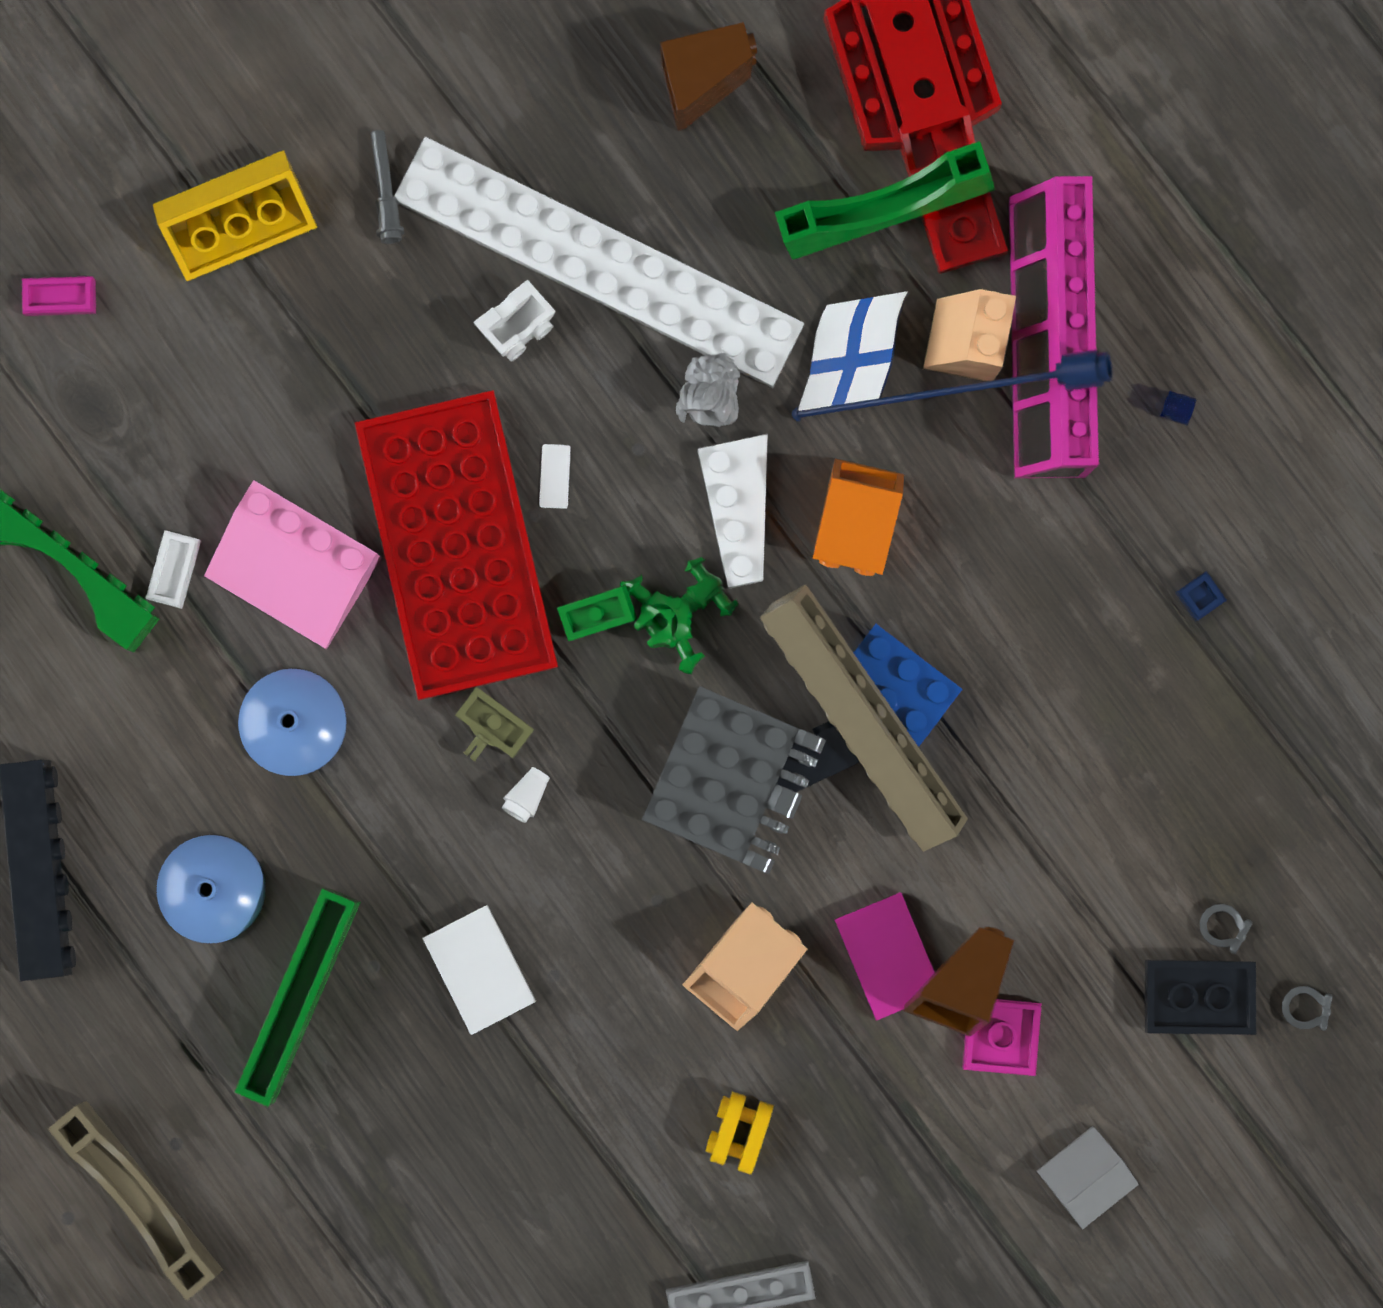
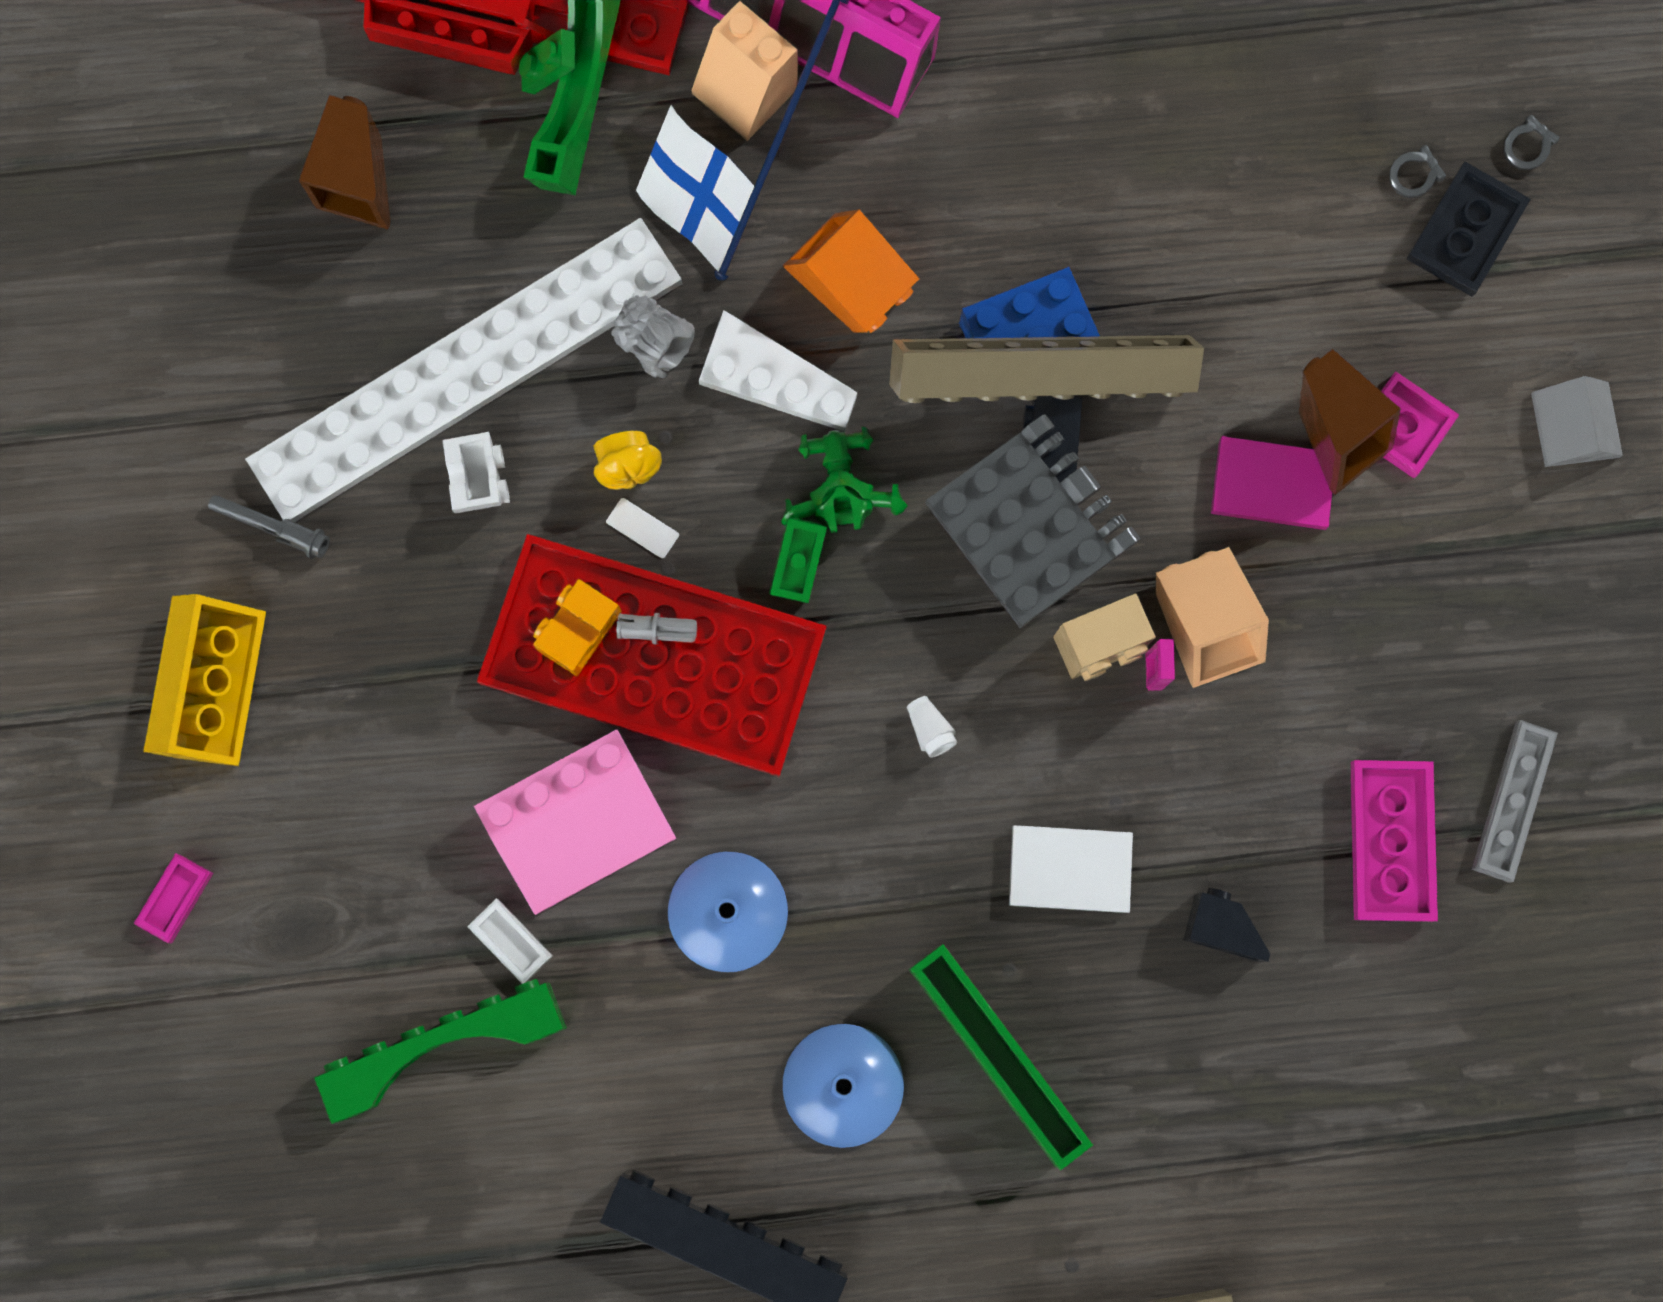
camera: 65 degrees left, 5 degrees down
(438, 474) = (577, 627): none -> light orange brick
(474, 535) = (656, 628): none -> light grey axle
(492, 725) = (845, 720): olive plate -> none
(501, 1114) = (1224, 926): none -> black slope
(595, 431) = (625, 460): none -> yellow piece
(649, 1213) = (1393, 841): none -> dark pink plate
(672, 891) = (1103, 637): none -> tan brick
(677, 947) = (1160, 665): none -> dark pink tile
(721, 1143) = (1364, 733): yellow brick -> none
(885, 172) = (548, 61): none -> green plate
(1201, 596) = (1103, 21): dark blue tile -> none

